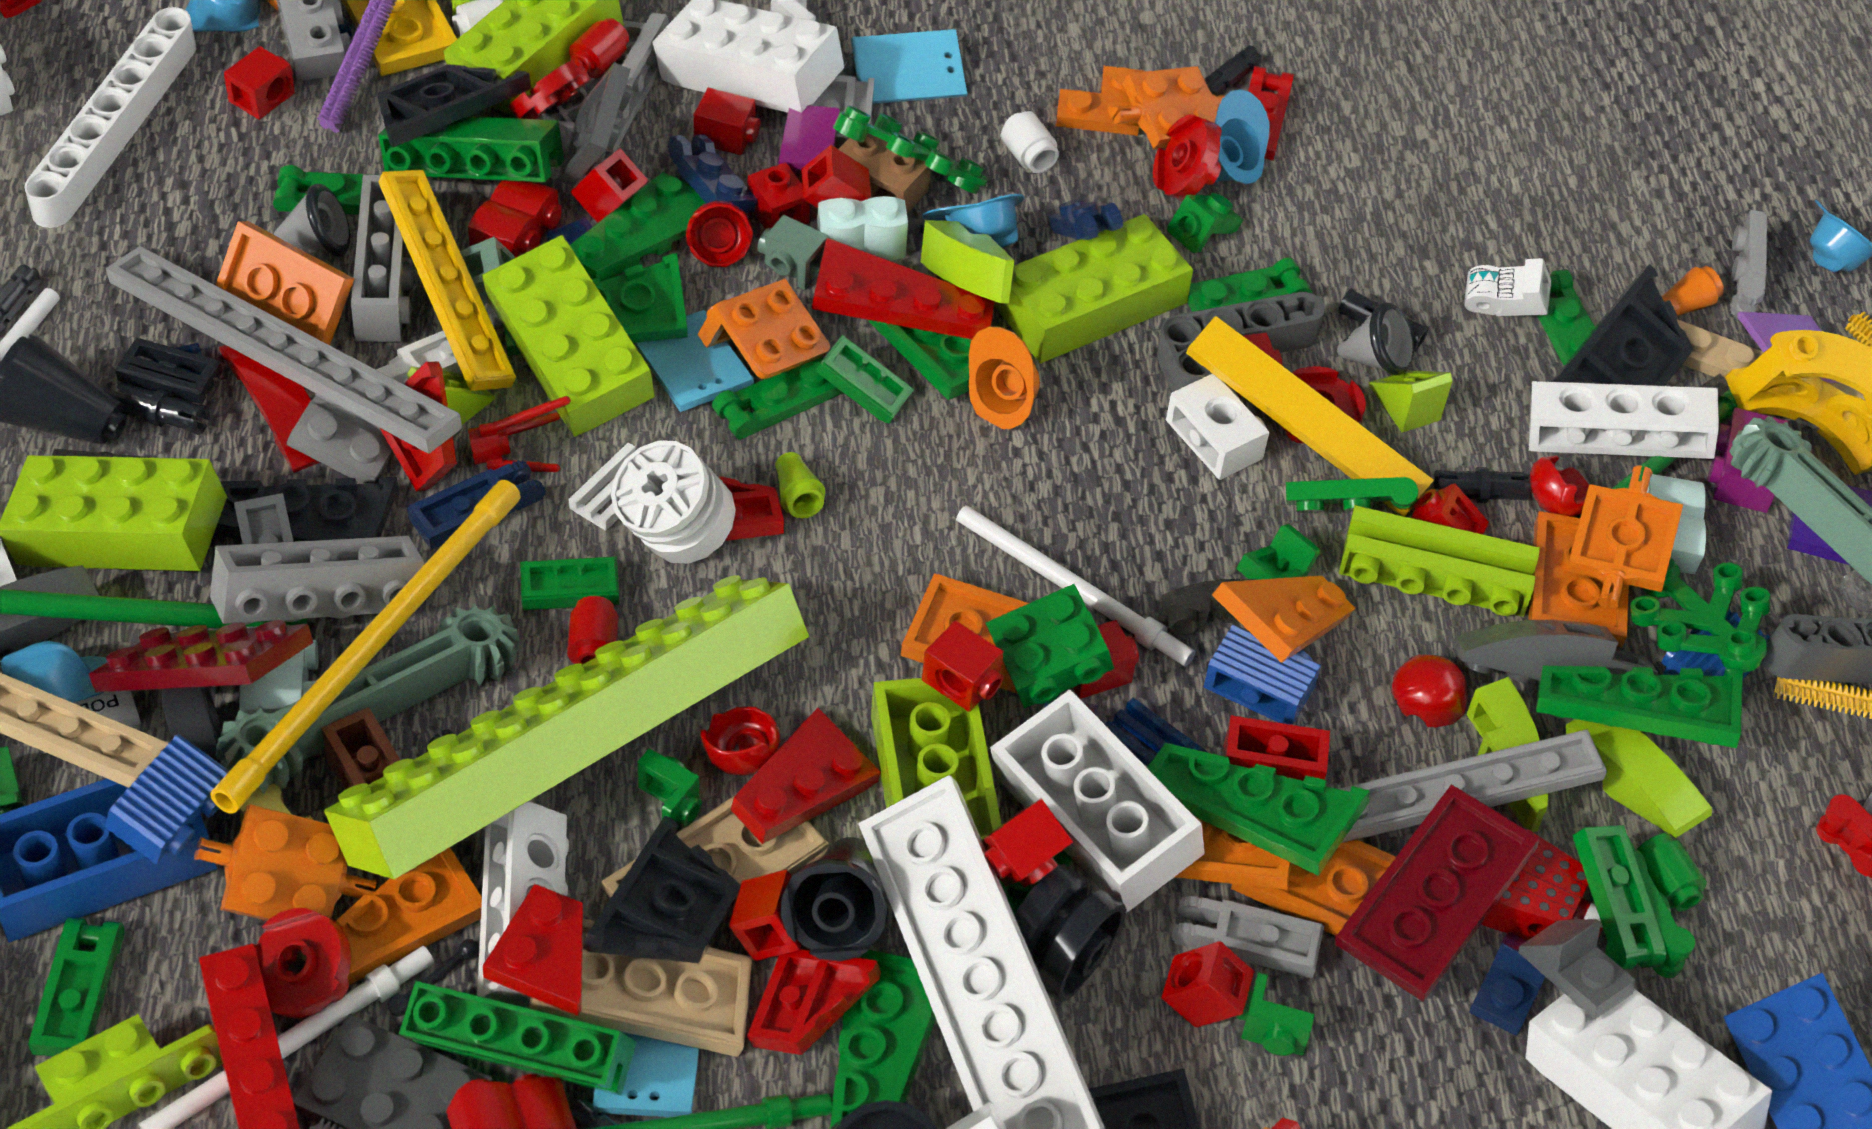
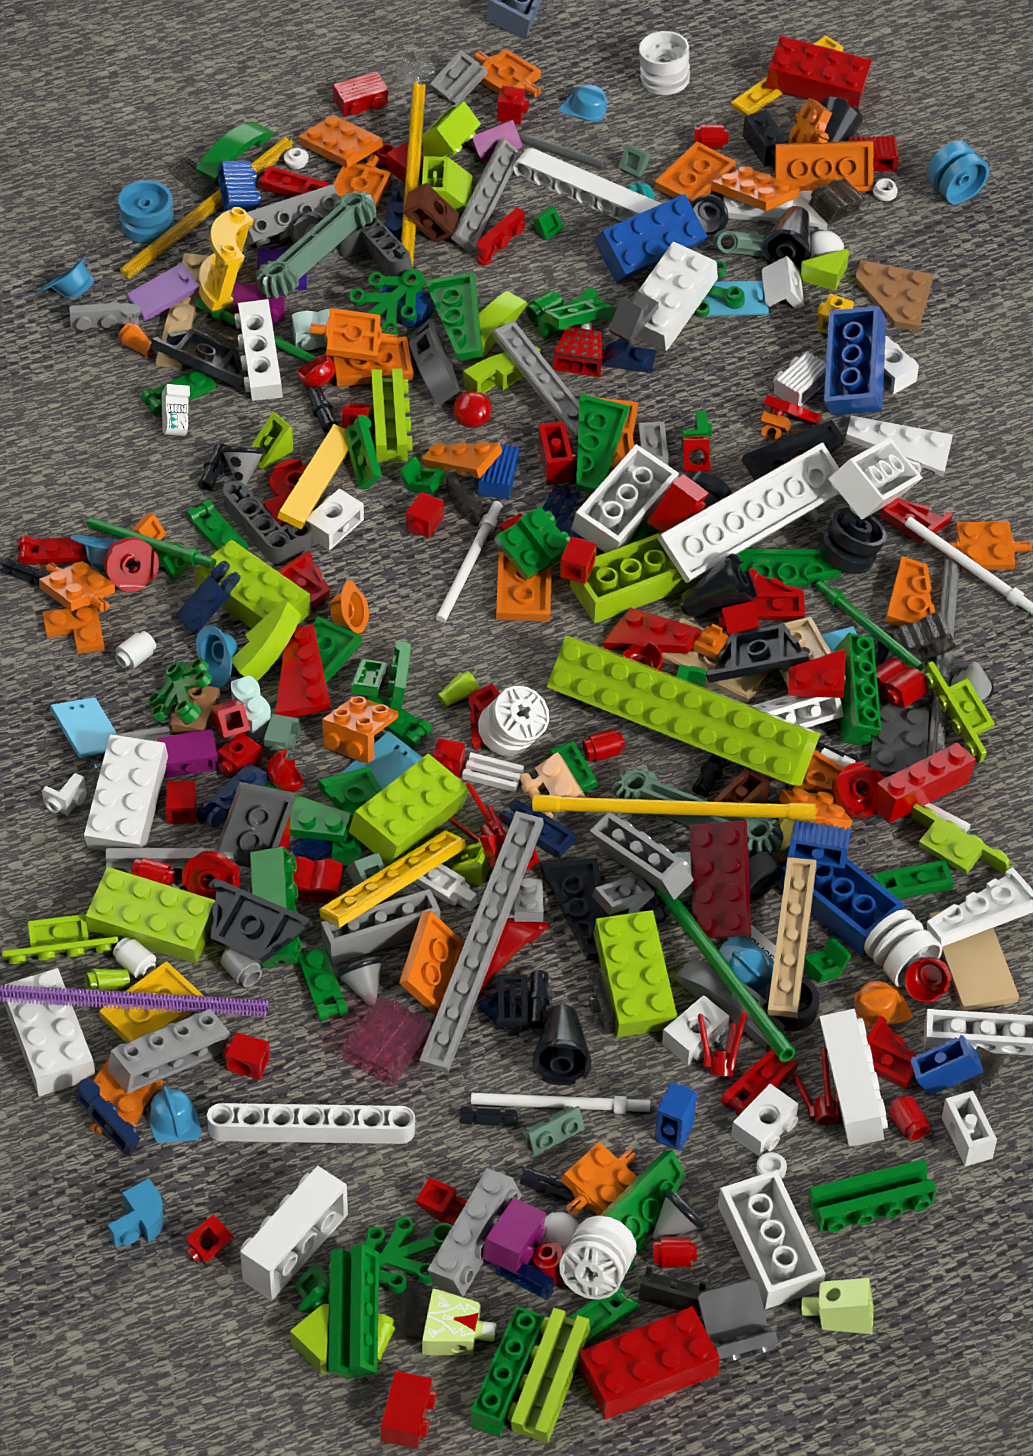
camera: 105 degrees left, 0 degrees up
(188, 217) = (386, 1041): none -> clear pink brick
(540, 539) = (555, 777): none -> light nougat plate
(653, 416) = (450, 755): none -> red brick
(742, 853) = (710, 641): none -> orange tile
(845, 406) = (398, 674): none -> green plate
(1101, 361) = (308, 577): none -> red wing
(1167, 204) = (189, 555): none -> green bar
(1188, 542) = (424, 515): none -> red brick
(1262, 207) = (150, 527): none -> orange tile
(1437, 892) = (611, 374): dark red plate -> none

